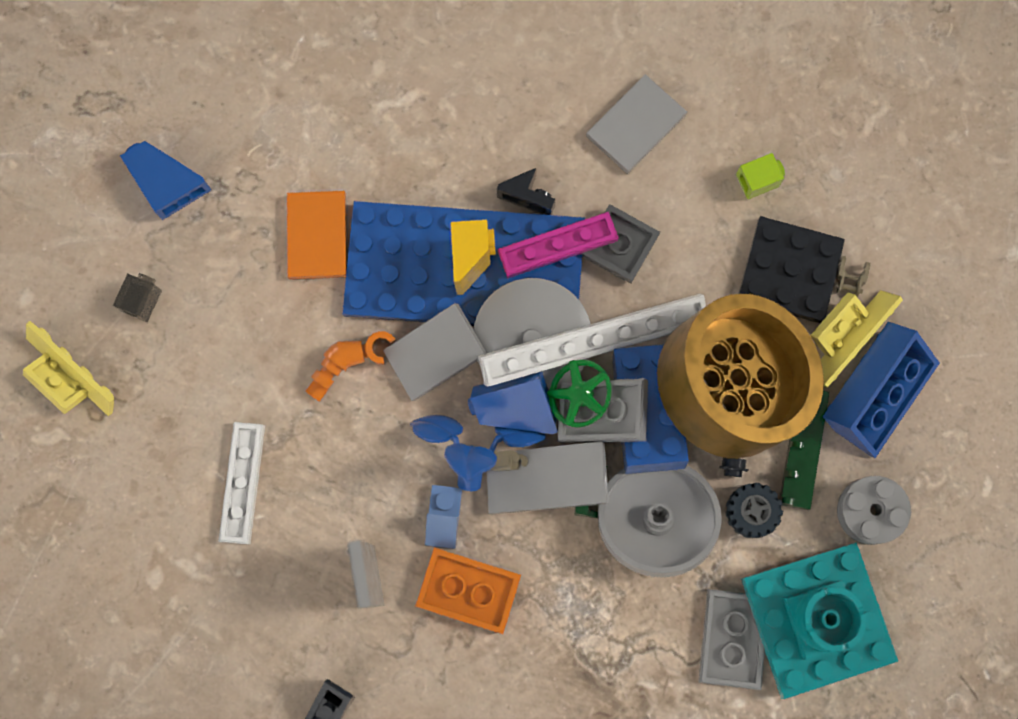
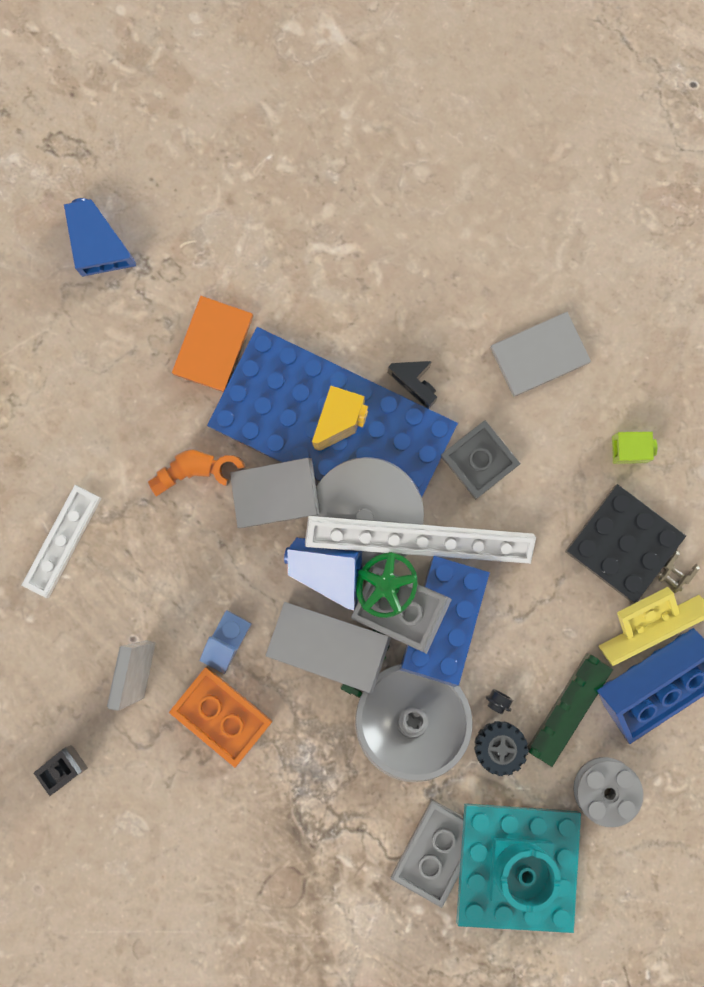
camera: 25 degrees right, 5 degrees up
(137, 296) = (33, 338): clear smoke brick -> none
(466, 460) = (261, 611): blue plant -> none
(509, 460) = (296, 617): dark tan piece -> none
(558, 245) = (423, 439): dark pink tile -> none
(771, 348) = (576, 611): pearl gold wheel -> none

